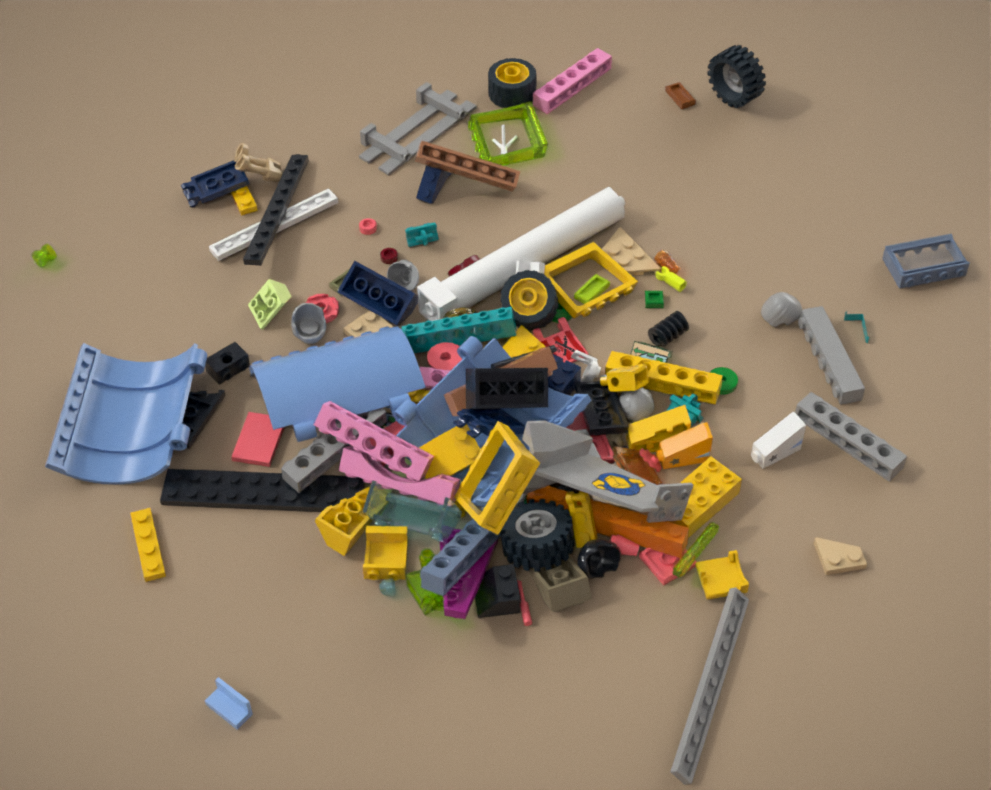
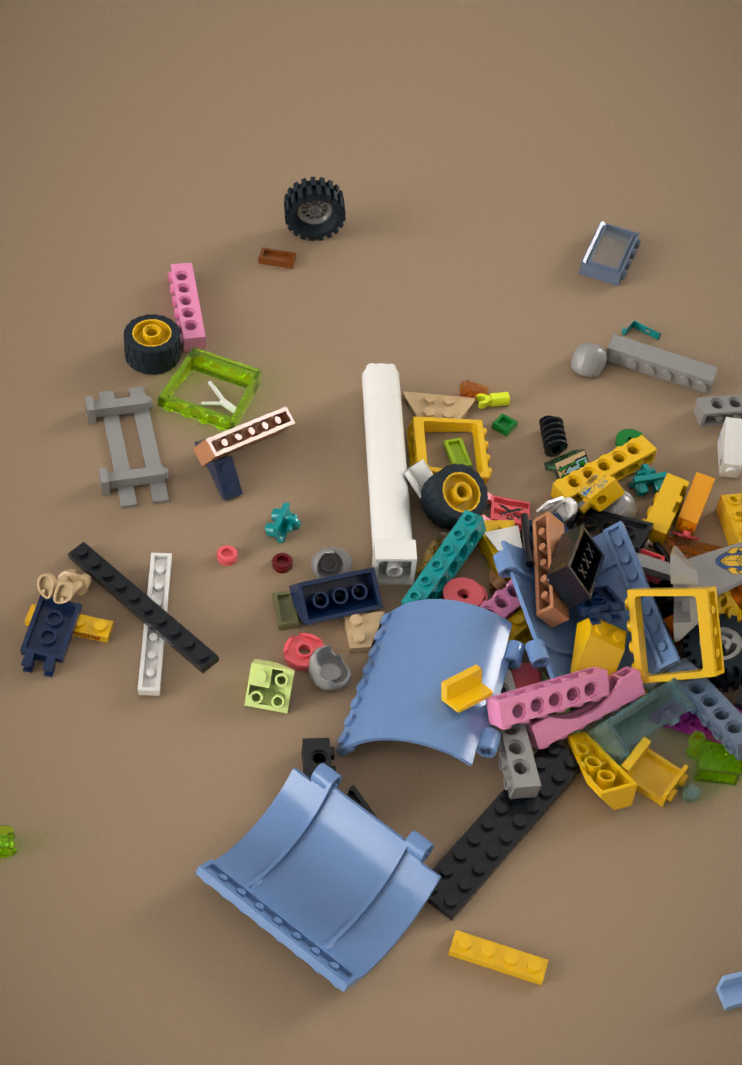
camera: 60 degrees left, 0 degrees up
(257, 441) = (434, 793): coral tile -> none
(323, 383) = (465, 689): none -> yellow panel
(467, 262) = (362, 517): dark red tile -> none
(516, 346) = (508, 534): none -> white sticker

